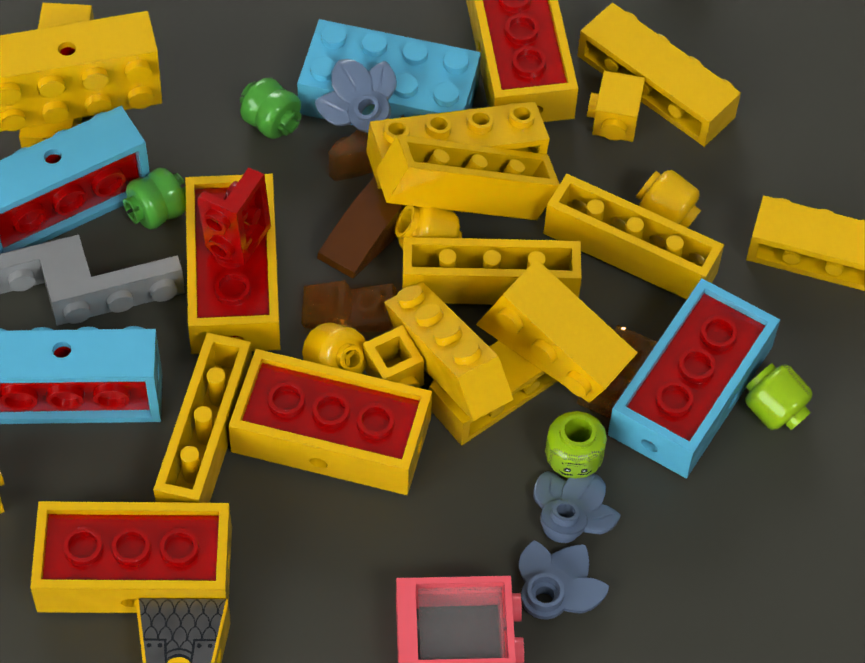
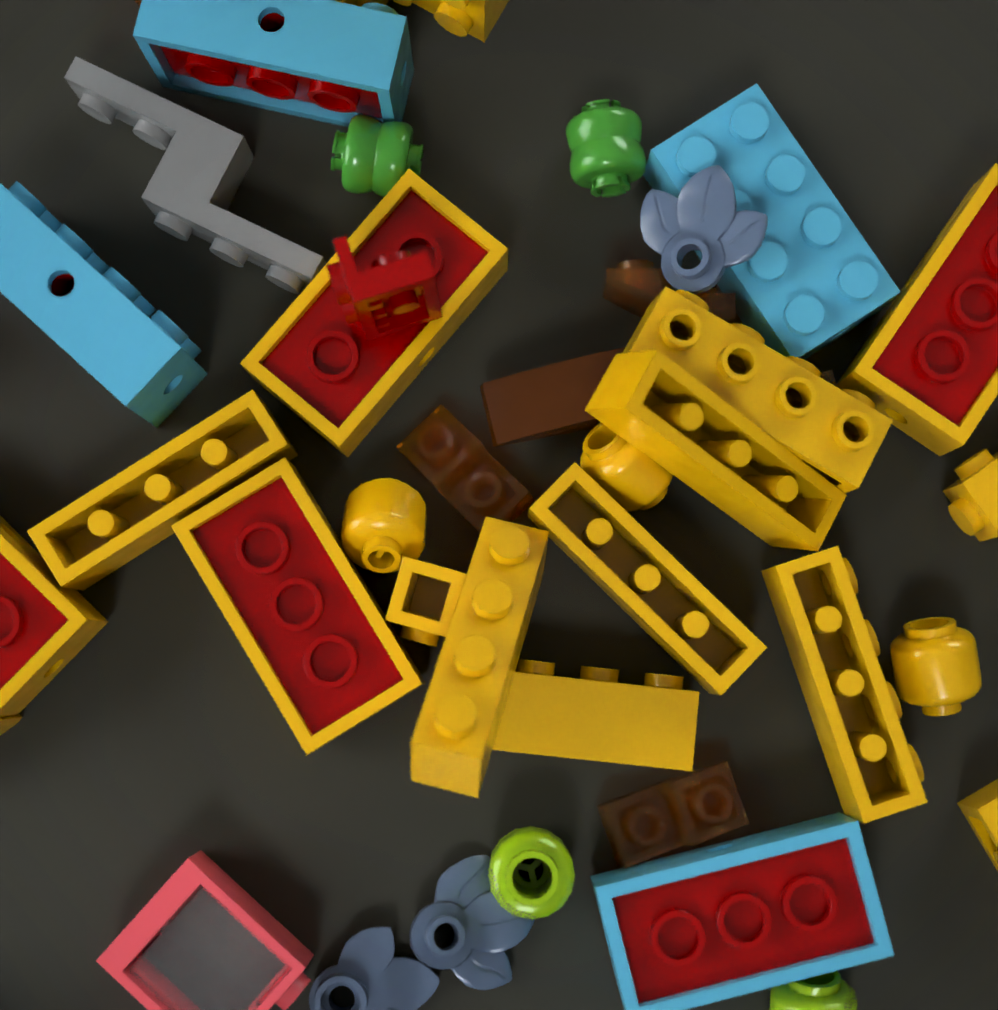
camera: 45 degrees right, 25 degrees up
(557, 333) = (615, 750): yellow wedge -> none

